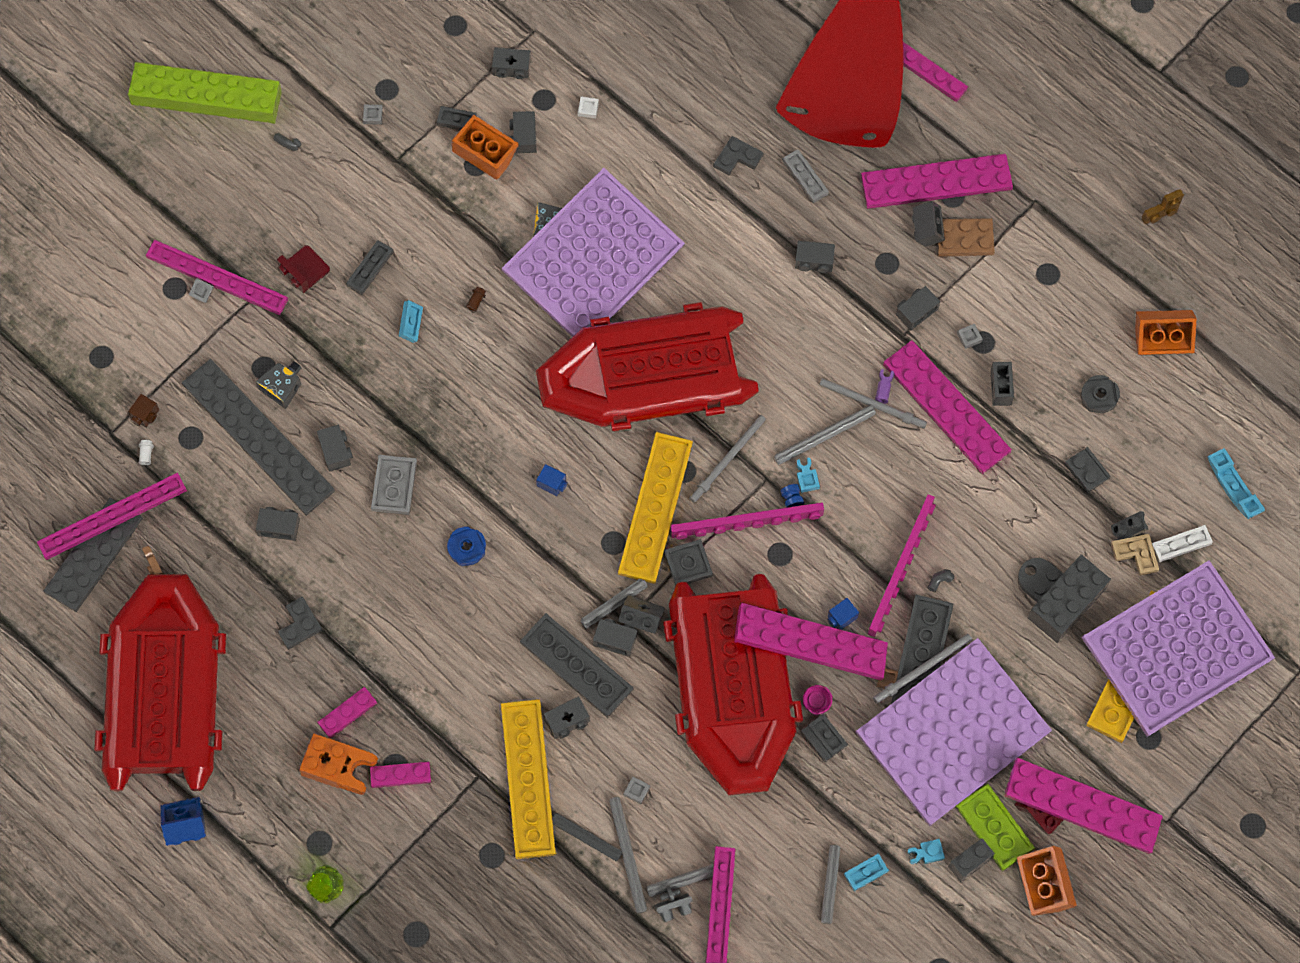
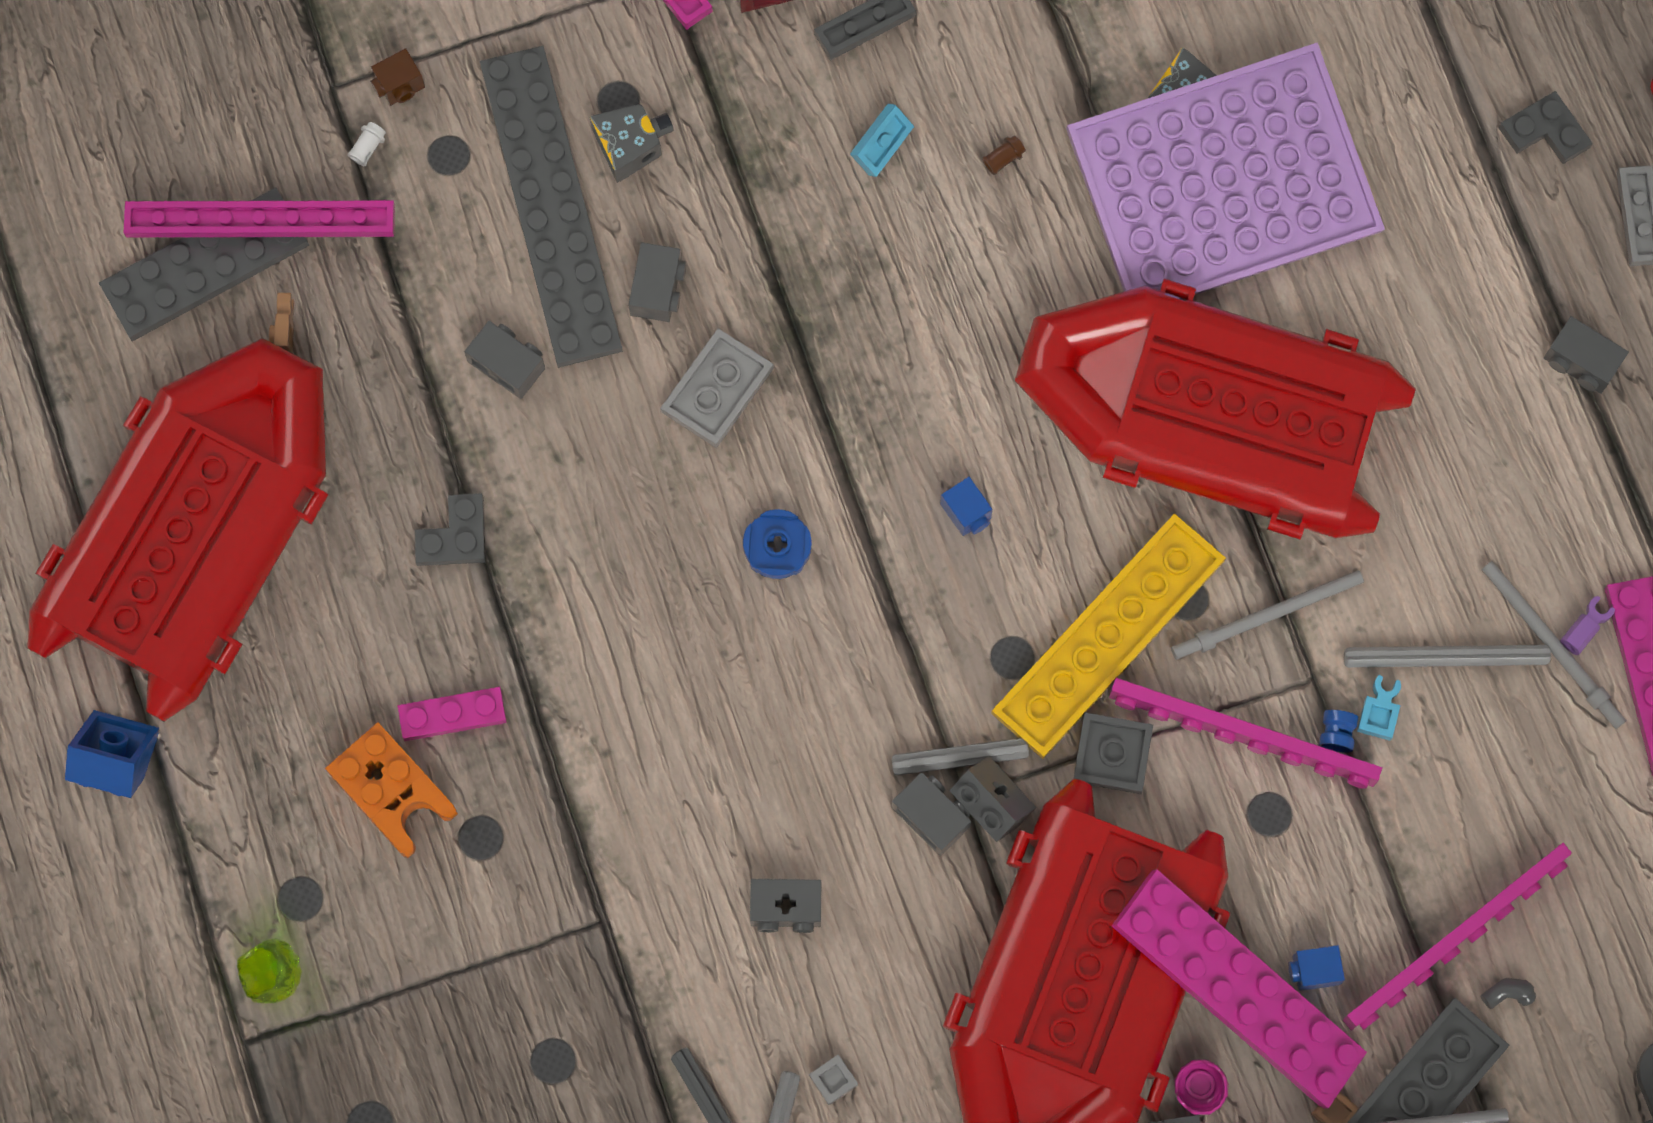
camera: 30 degrees right, 5 degrees up
(400, 774) = (480, 856): dark pink plate -> none
(528, 779) = (672, 970): yellow plate -> none
(576, 665) = (847, 827): dark grey plate -> none

